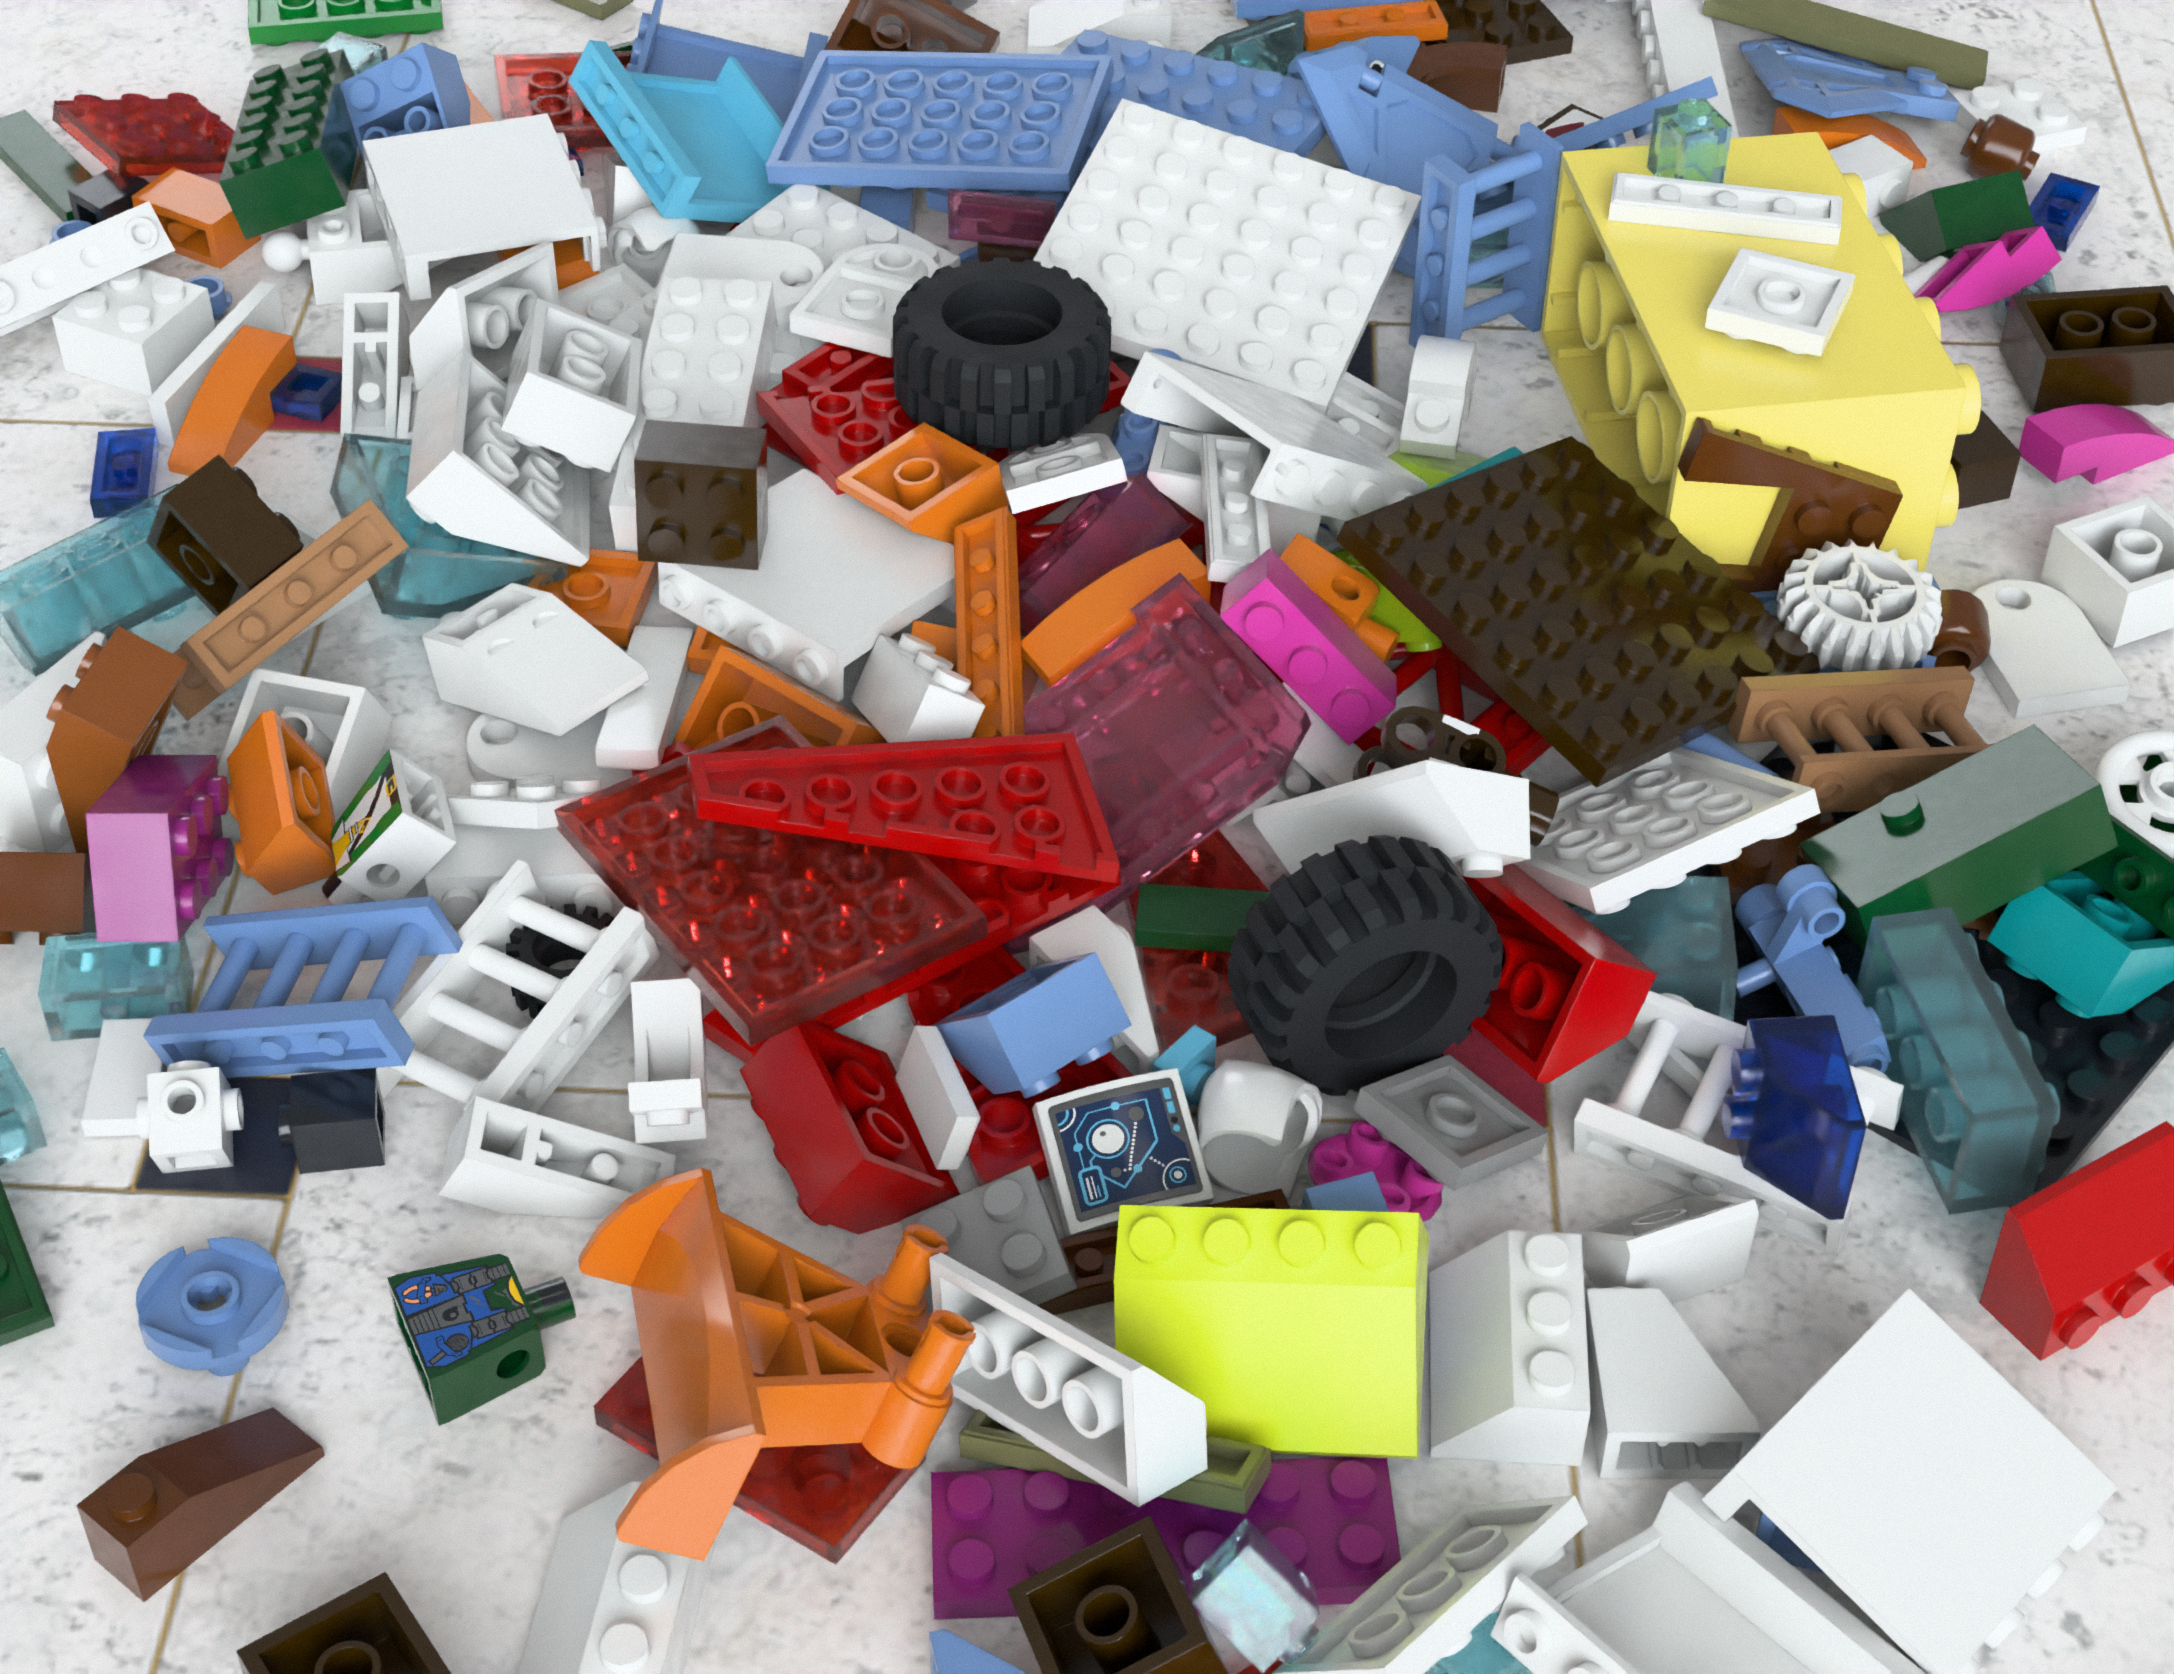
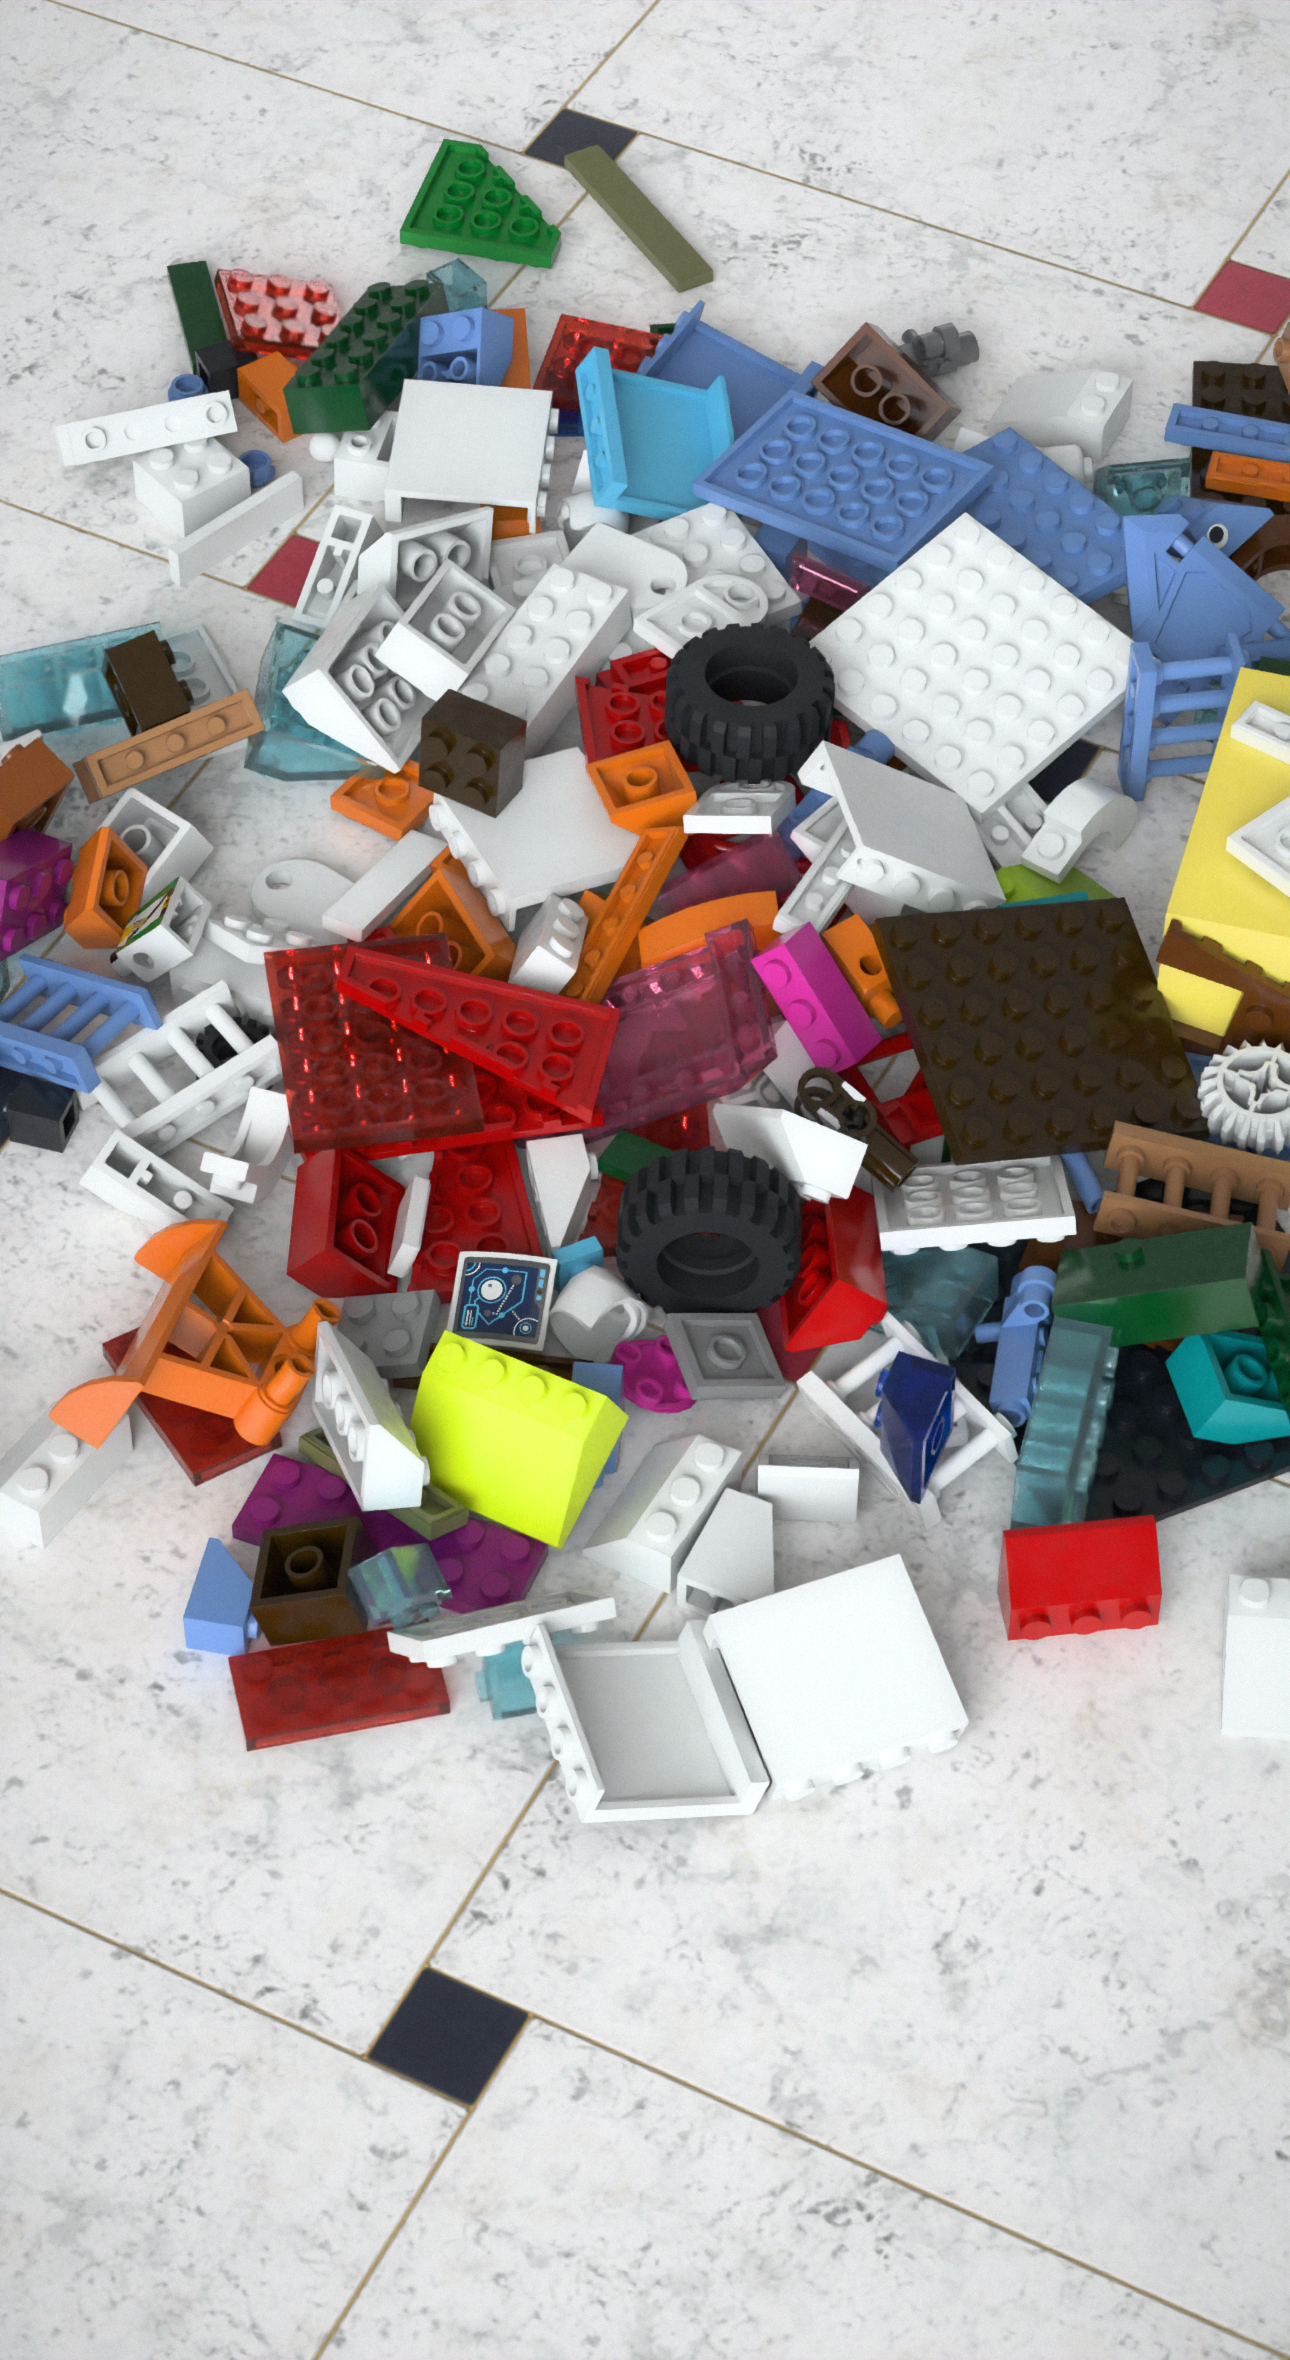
camera: 25 degrees right, 5 degrees up
(123, 470) = (133, 597): clear blue plate -> none
(233, 400) = (230, 566): orange slope -> none
(307, 392) = (285, 571): clear blue plate -> none
(475, 1329) = (56, 1273): torso -> none
(528, 661) = (318, 835): white slope -> none
(1037, 1025) = (490, 1202): medium blue slope -> none

